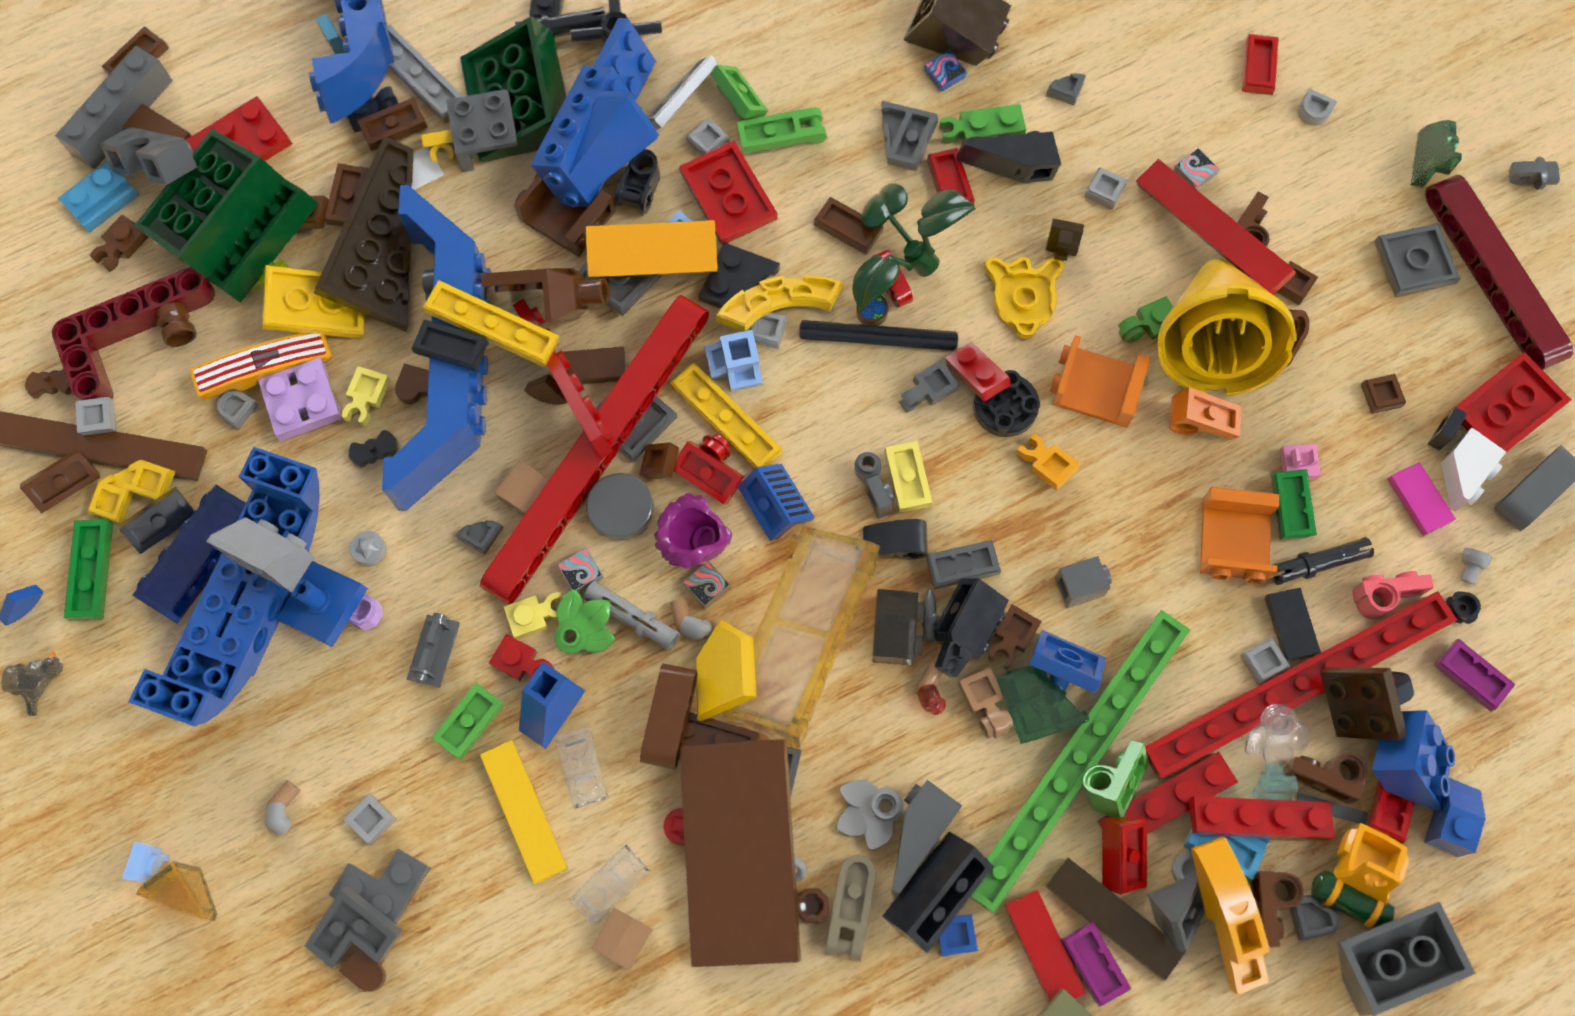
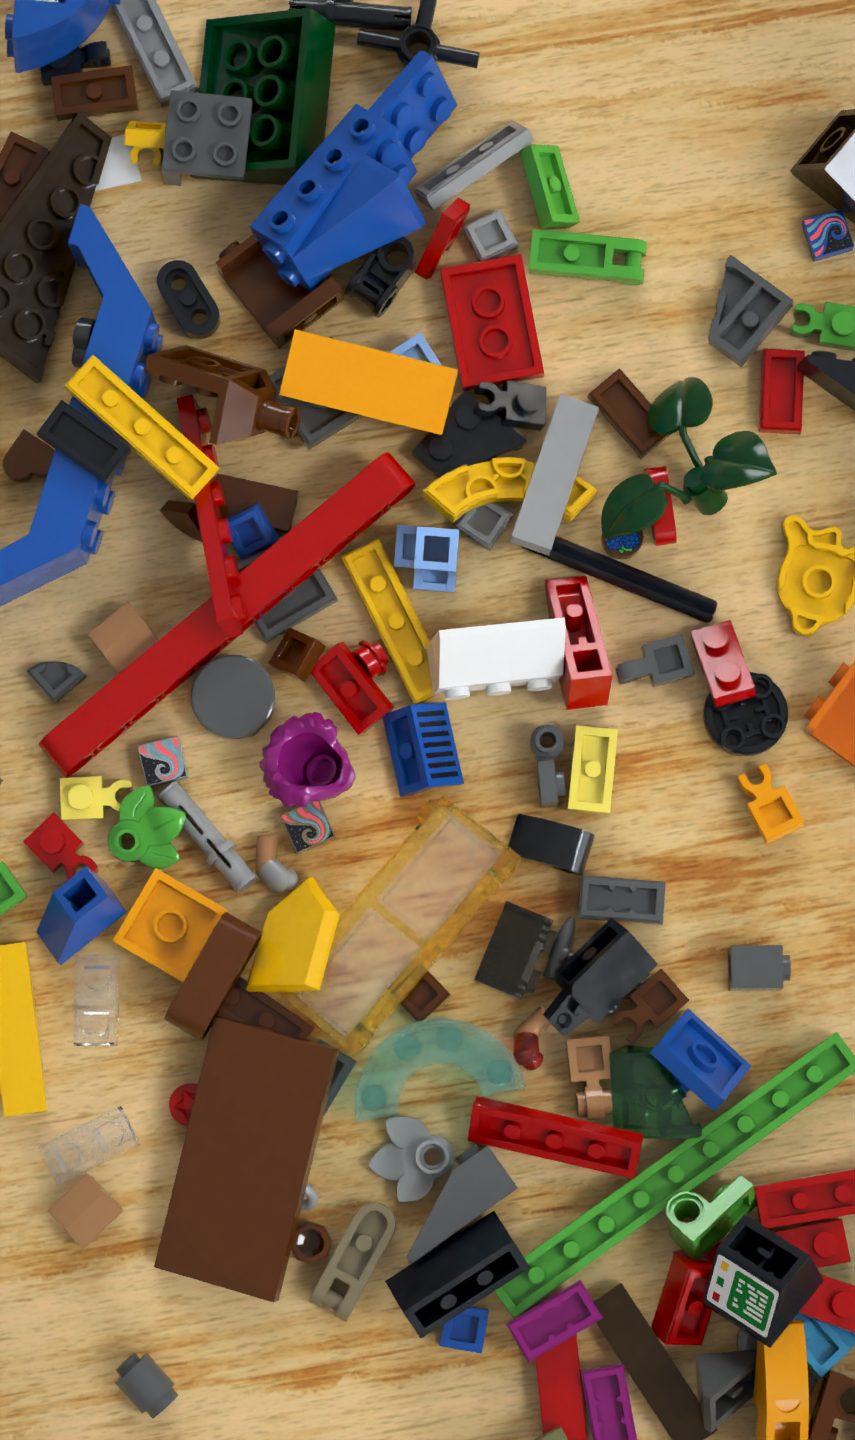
camera: 20 degrees right, 10 degrees up
(503, 241) = (190, 300): none -> black plate
(596, 383) = (251, 530): none -> blue tile
(621, 691) = (169, 925): none -> light orange plate
(674, 146) = (443, 237): none -> red tile
(766, 240) = (518, 403): none -> black plate
(808, 278) = (554, 474): none -> light grey tile
(809, 412) = (497, 658): none -> white slope
(838, 685) = (425, 997): none -> reddish brown tile
(860, 713) = (427, 1044): none -> clear light blue brick
(867, 390) = (586, 663): none -> red slope
(977, 758) = (555, 1137): none -> red plate
(1027, 904) = (554, 1321): none -> magenta plate
(1181, 814) = (760, 1281): none -> black slope

